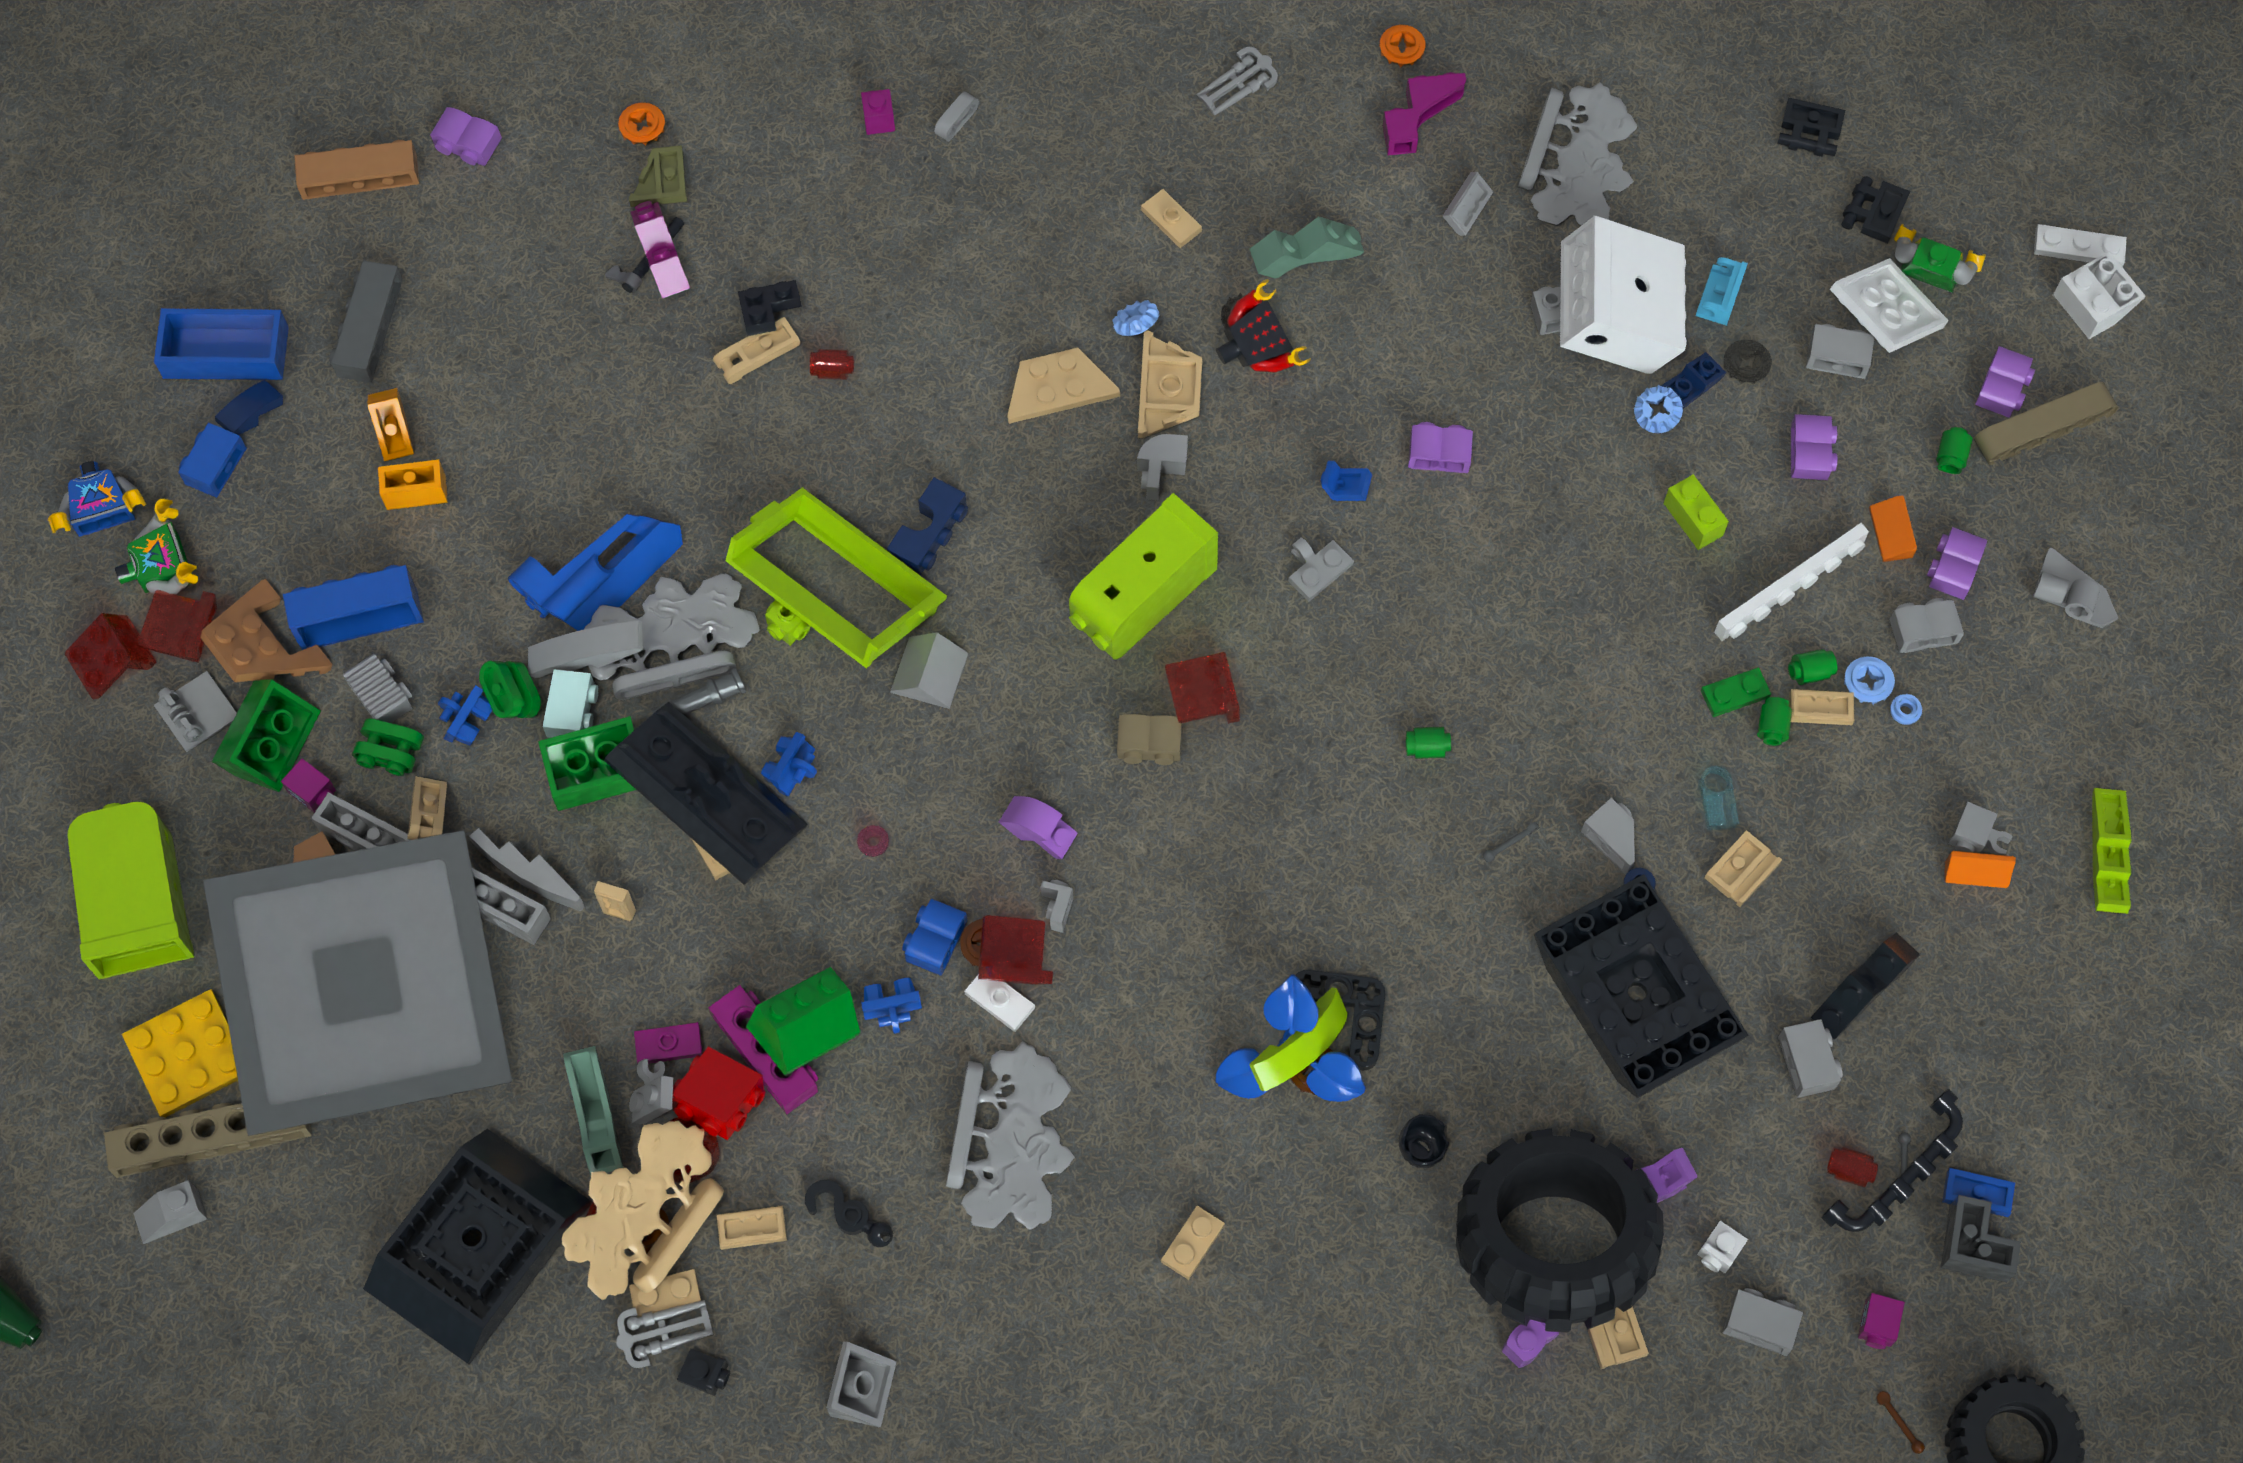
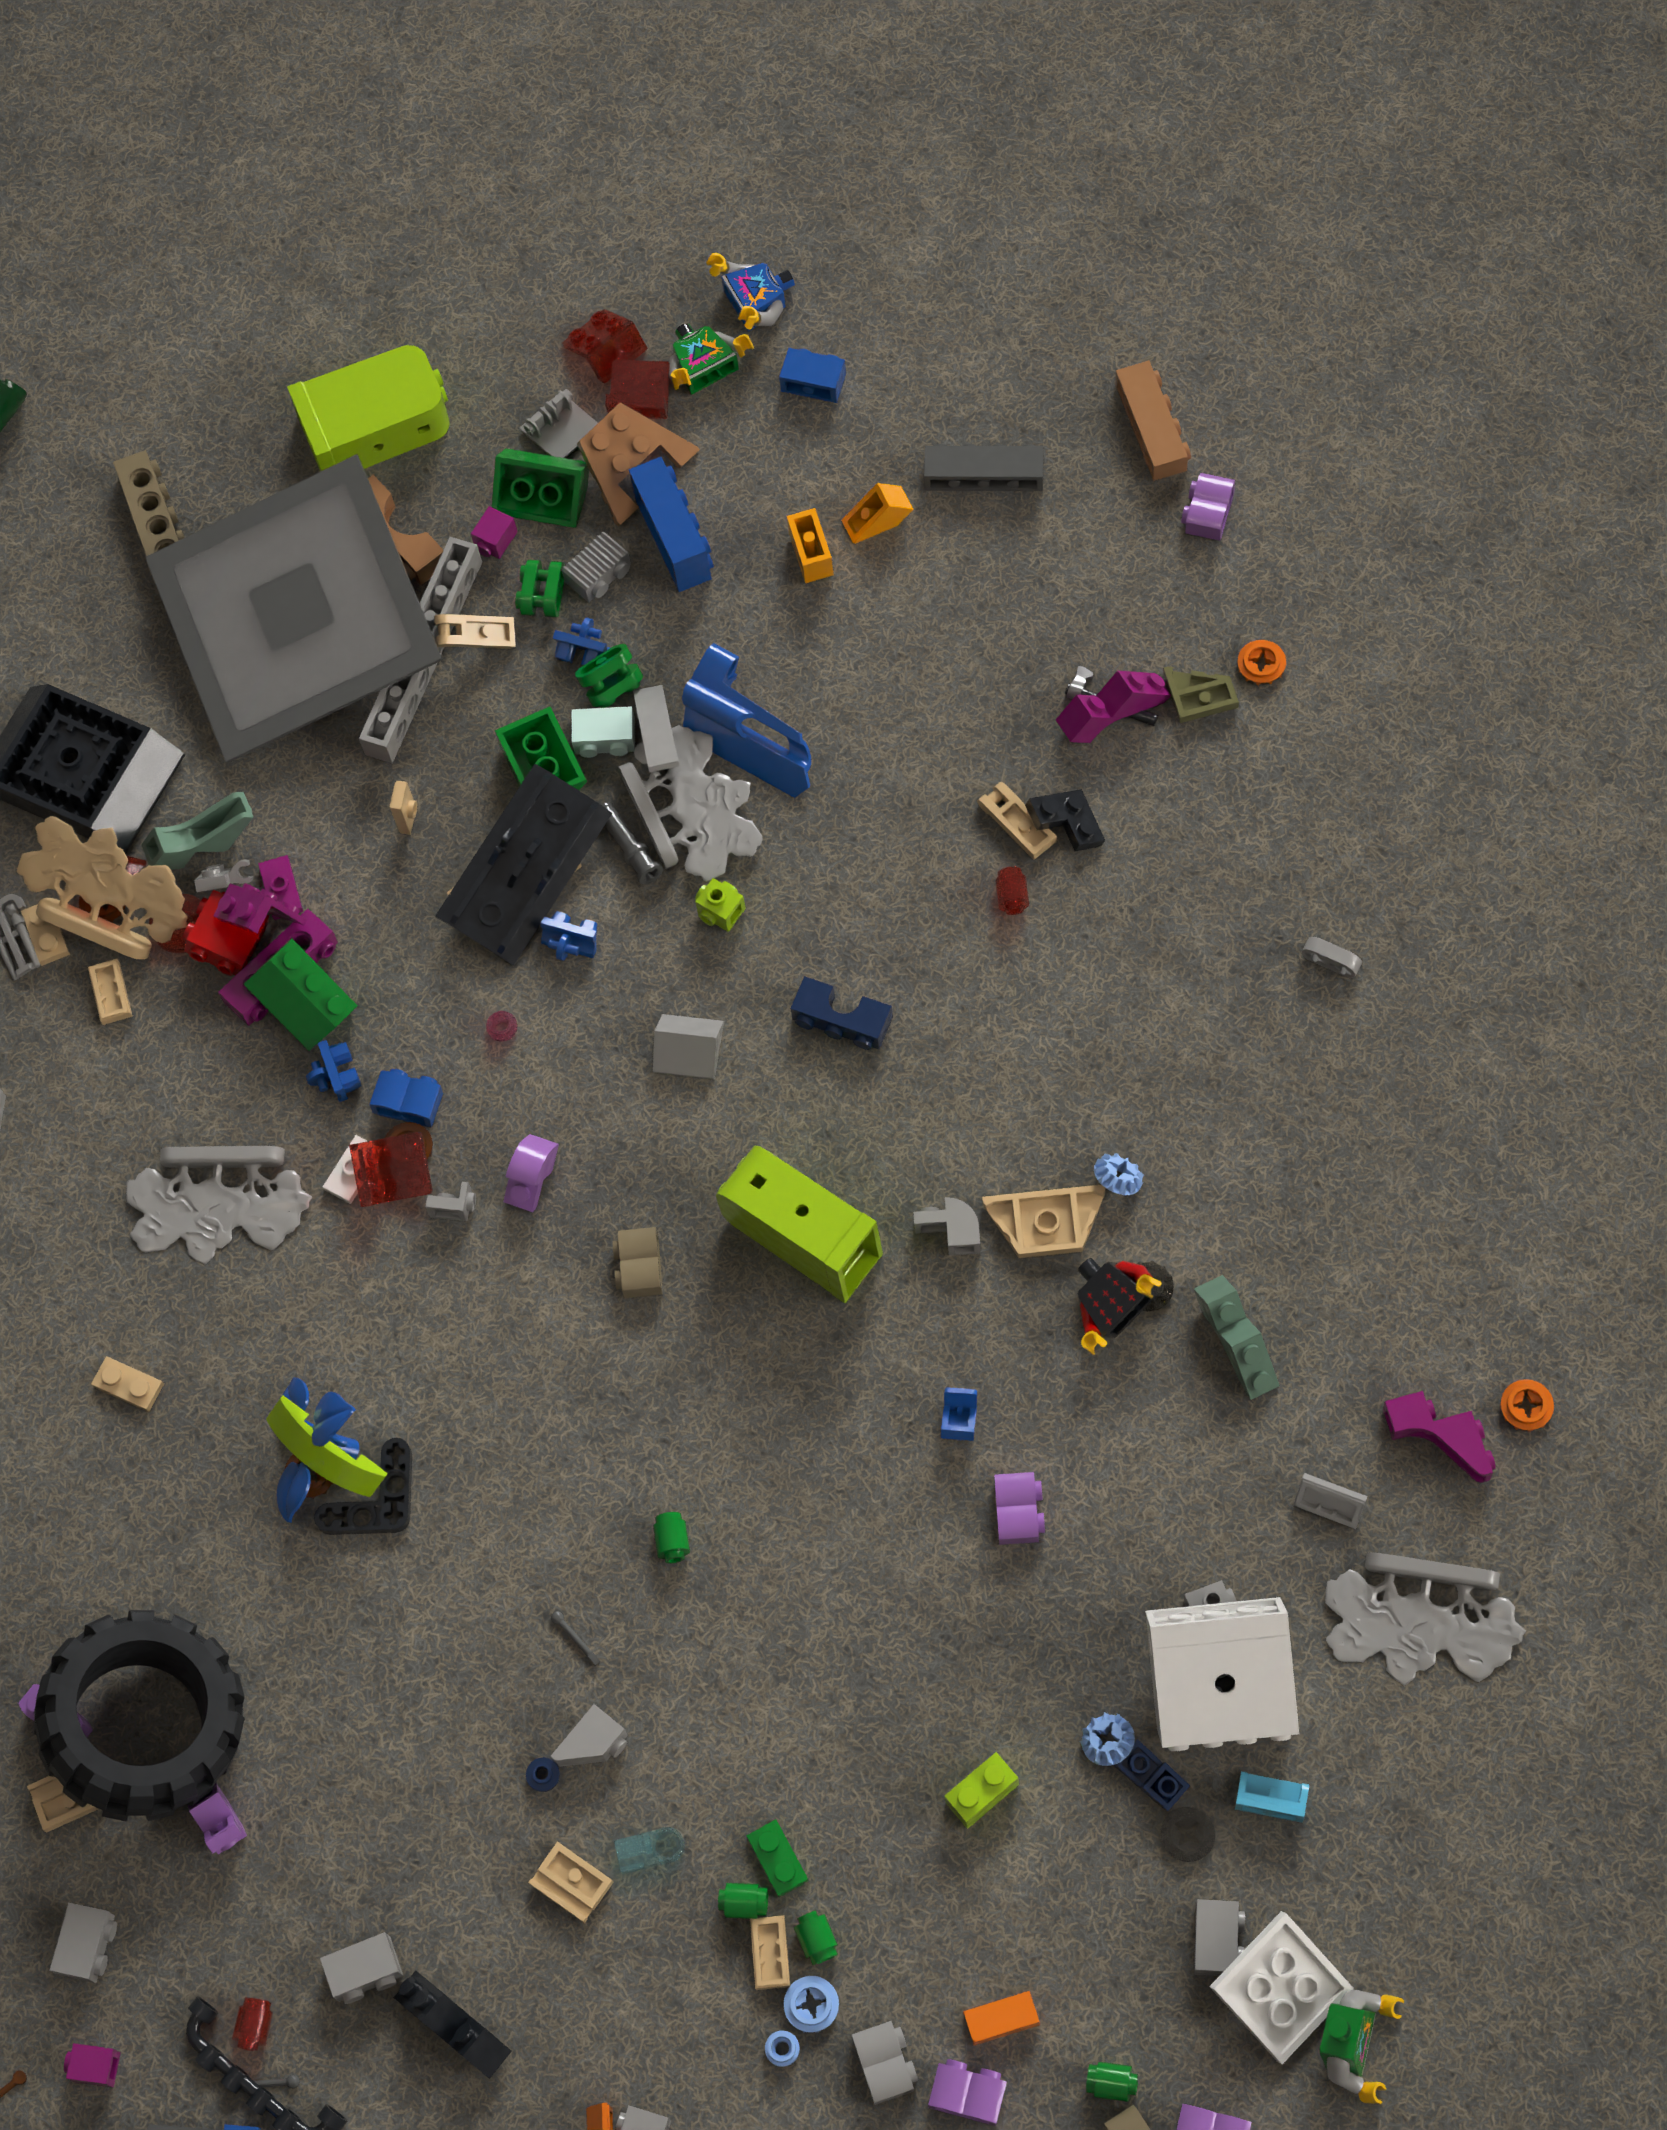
camera: 90 degrees right, 0 degrees up
(169, 1211) = (88, 524): light grey slope -> none
(184, 1053) = (226, 488): yellow plate -> none
(221, 344) = (932, 351): blue piece -> none
(243, 411) = (875, 391): dark blue slope -> none
(534, 875) = (428, 738): light grey slope -> none
(708, 1050) = (248, 907): none -> magenta bracket
(850, 1215) = (127, 1073): black piece -> none
(854, 547) = (729, 905): lime piece -> none
(878, 111) = (1317, 878): magenta brick -> none
(1058, 384) = (1030, 1111): tan wing -> none
(1171, 218) = (1253, 1193): tan plate -> none
(1203, 688) = (694, 1304): clear red bracket -> none
(1264, 63) = (1468, 1259): light grey piece -> none
(1318, 569) = (858, 1403): light grey plate -> none
(1427, 1130) = (234, 1579): black hair -> none
(1629, 943) = (370, 1794): black slope -> none
(1721, 1248) = (158, 1896): white bracket -> none
(1783, 589) = (923, 1918): white plate -> none
(1811, 119) = (1526, 1886): black plate -> none
(1812, 447) = (1087, 1916): medium lavender brick -> none
(1884, 212) = (1418, 1978): black plate -> none

